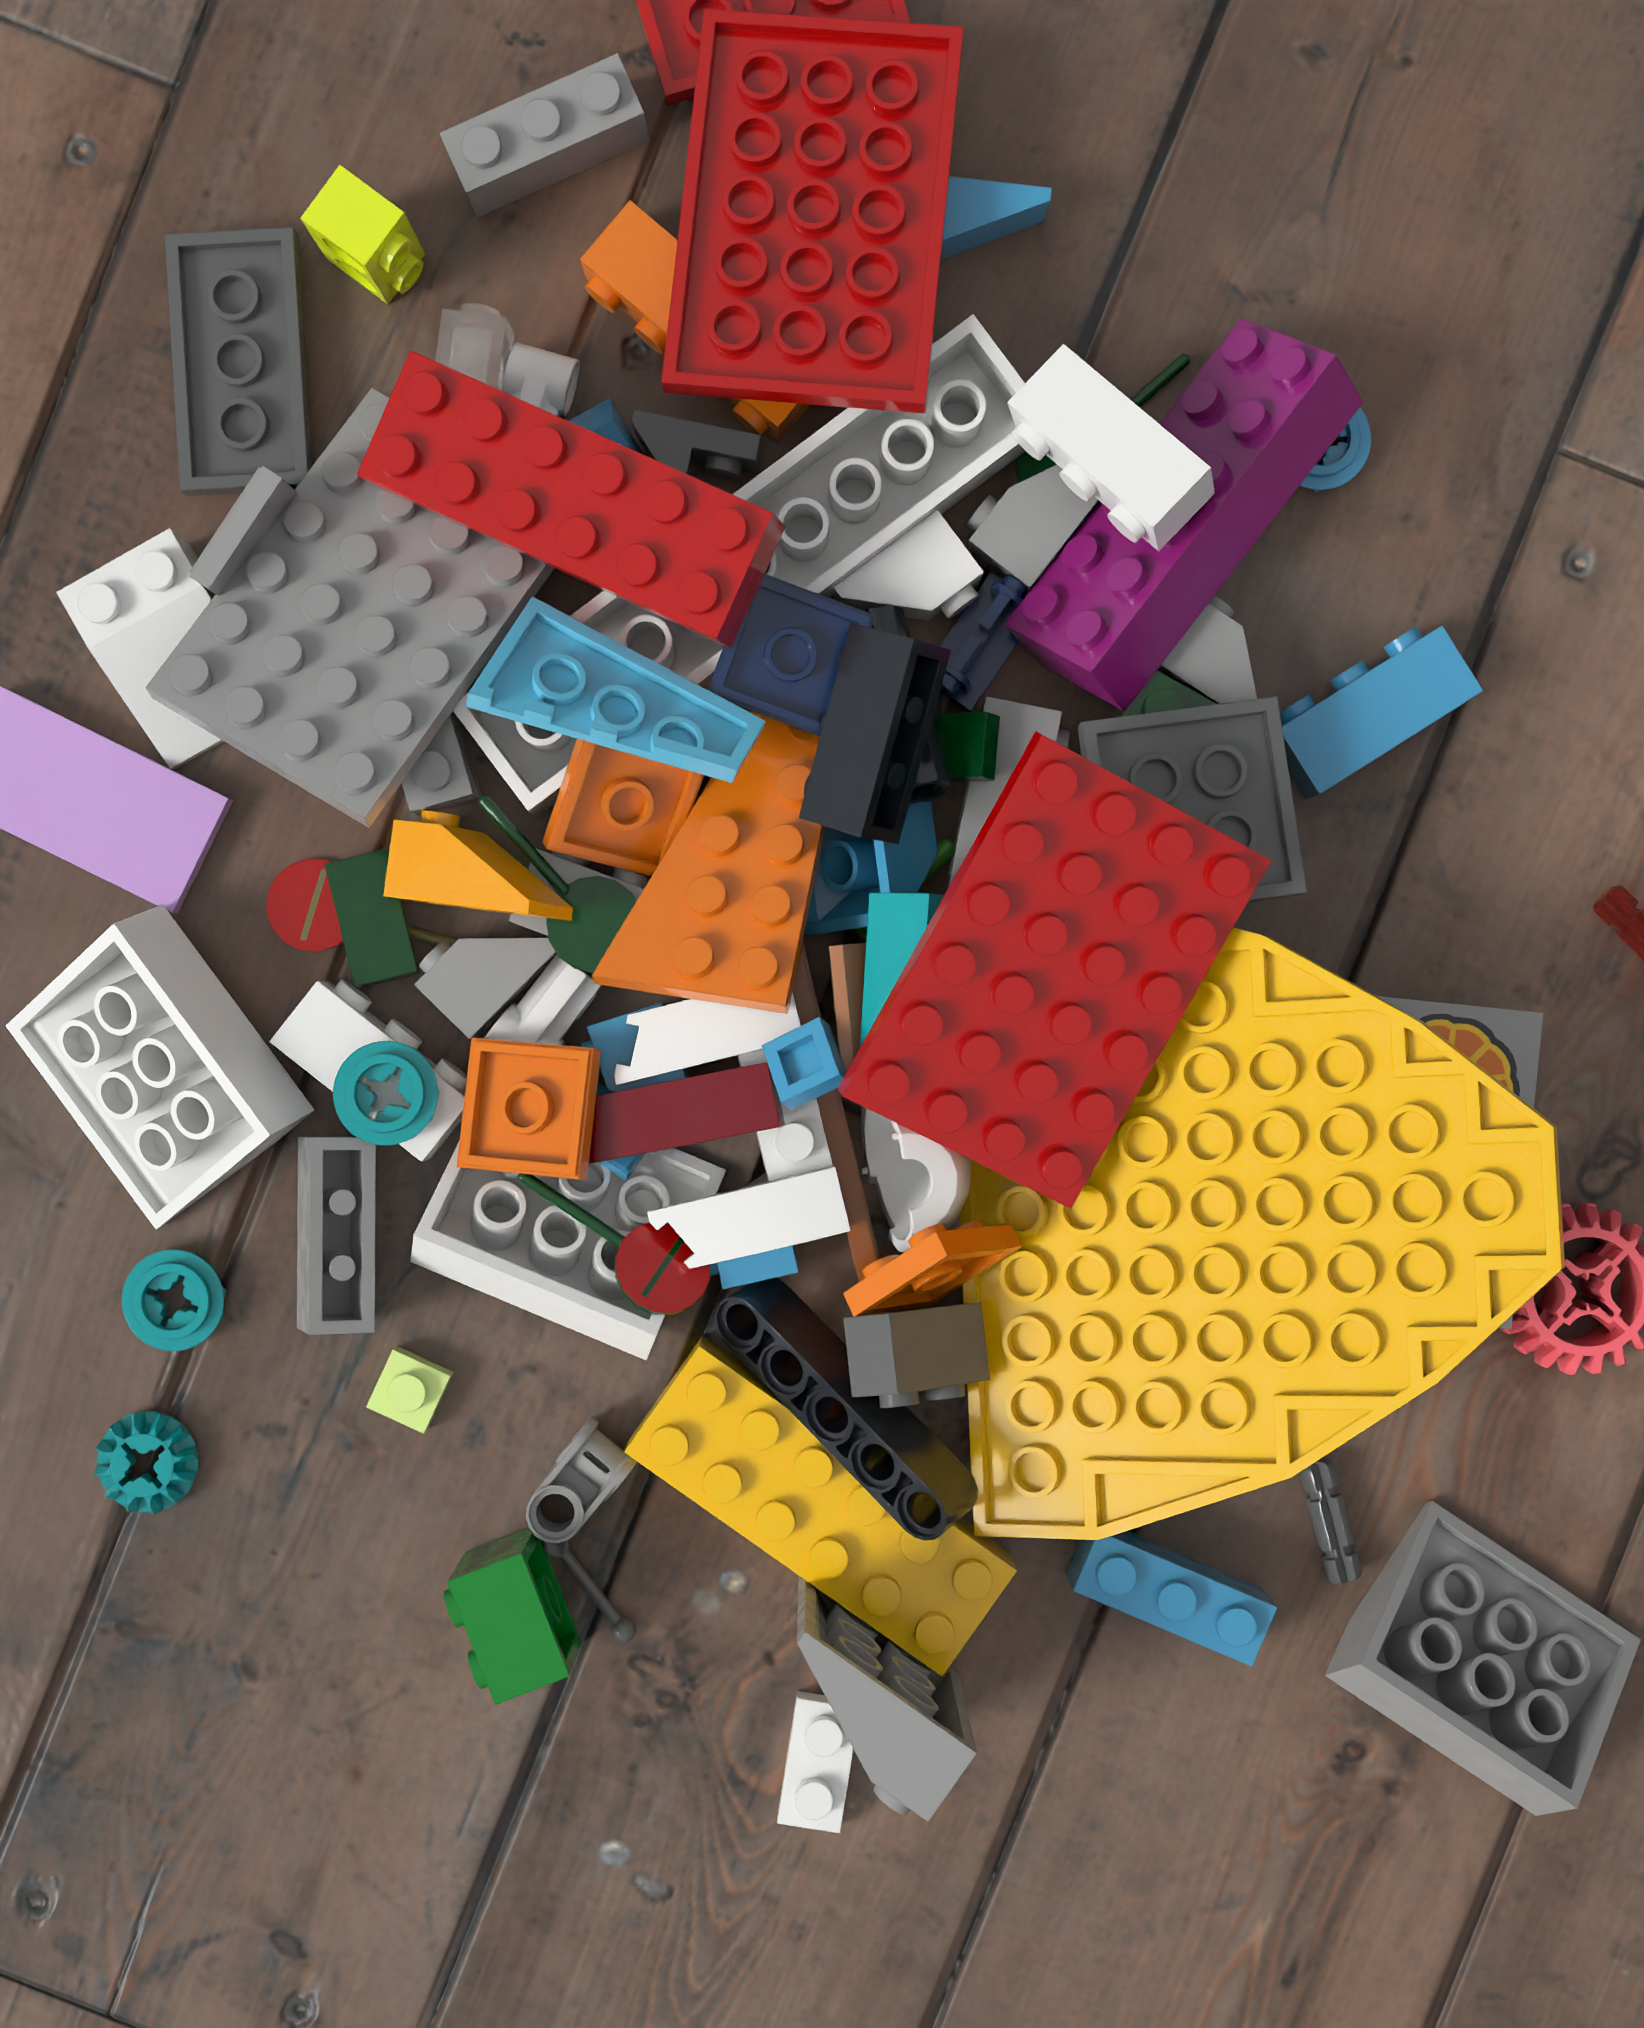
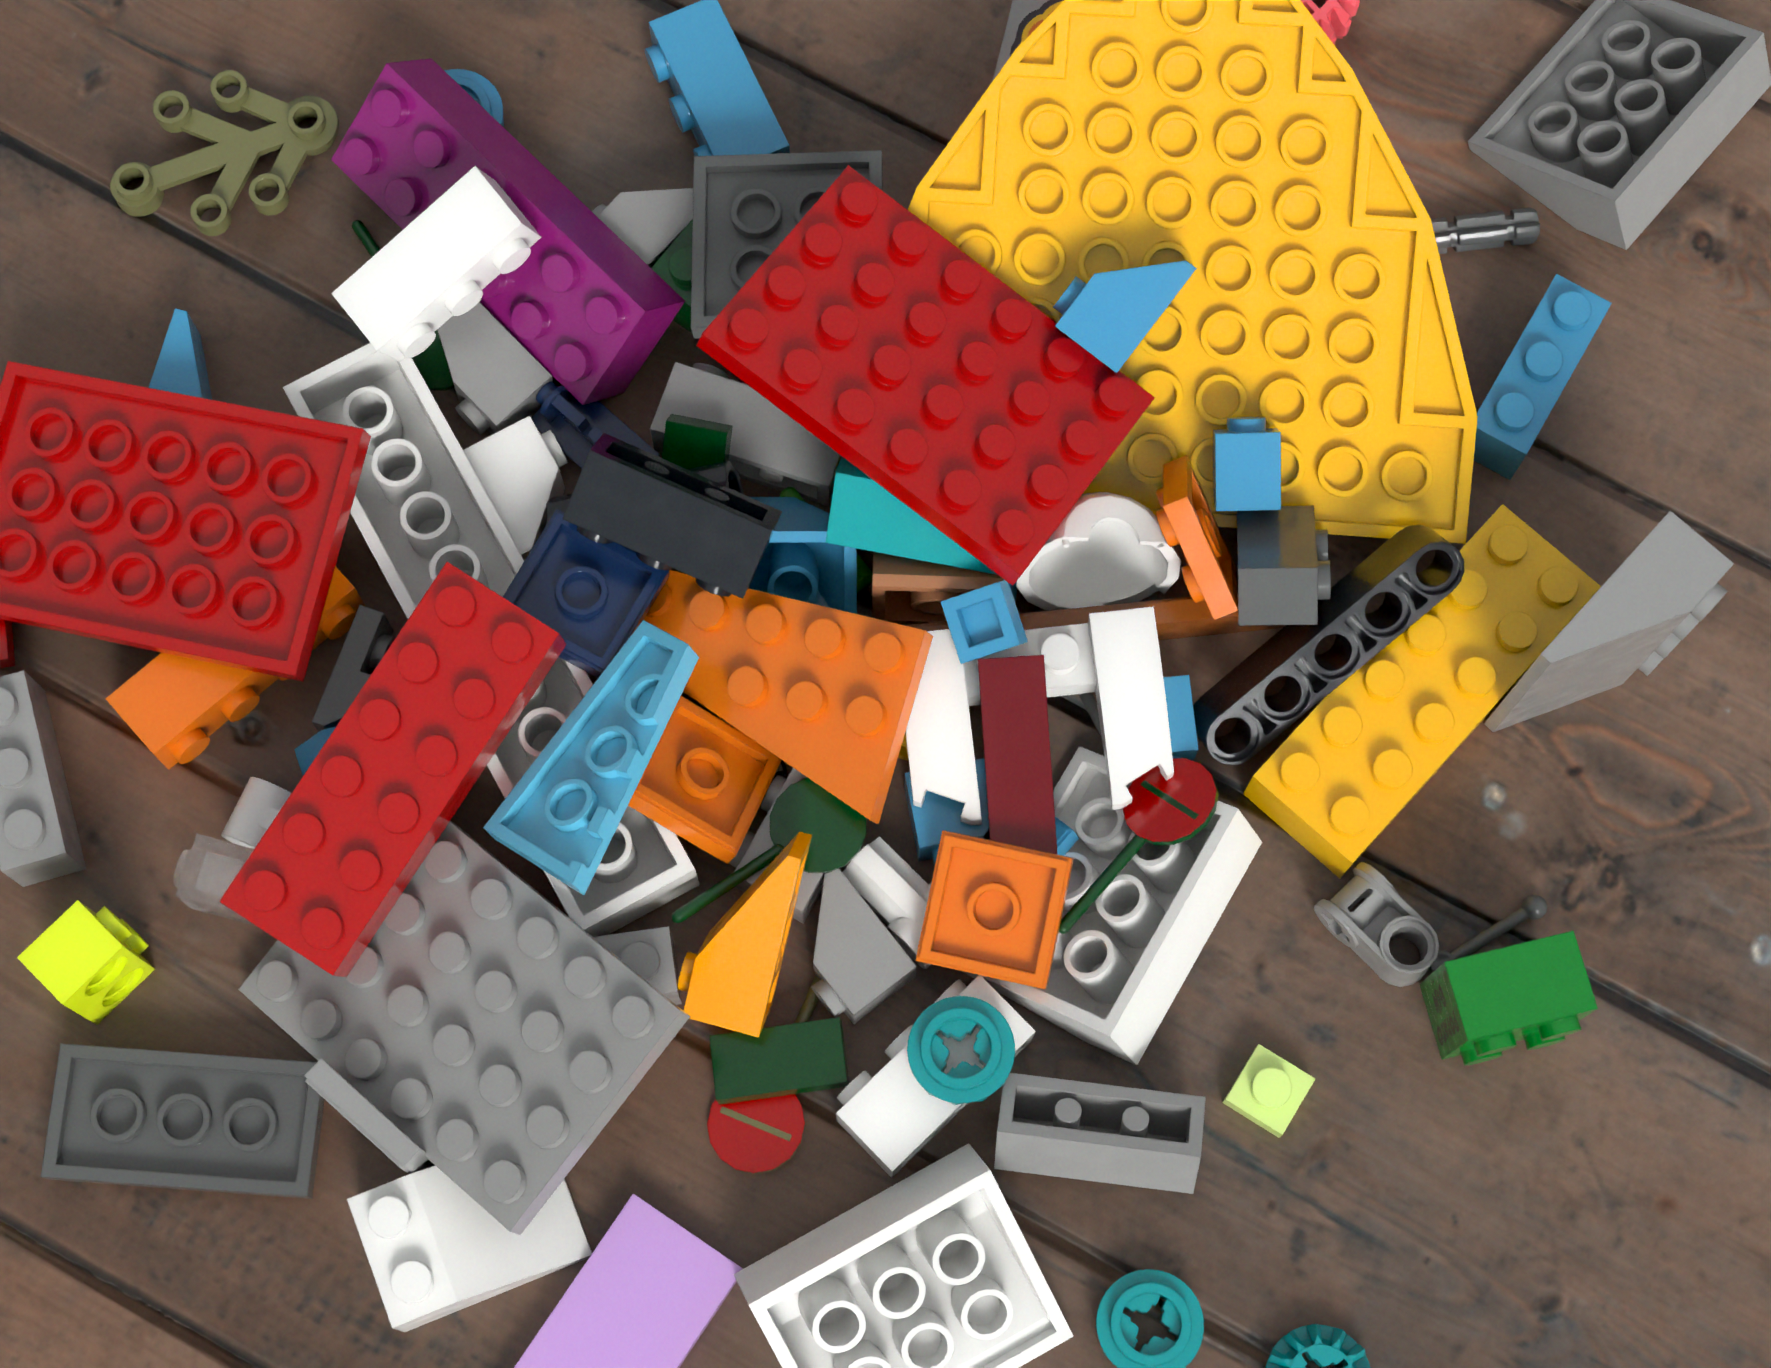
camera: 85 degrees left, 15 degrees down
(815, 1767) = (1681, 733): white plate -> none
(1013, 1309) = (1247, 466): none -> dark azure brick
(1155, 1164) = (1119, 308): none -> dark azure slope
(1245, 217) = (233, 151): none -> olive plant

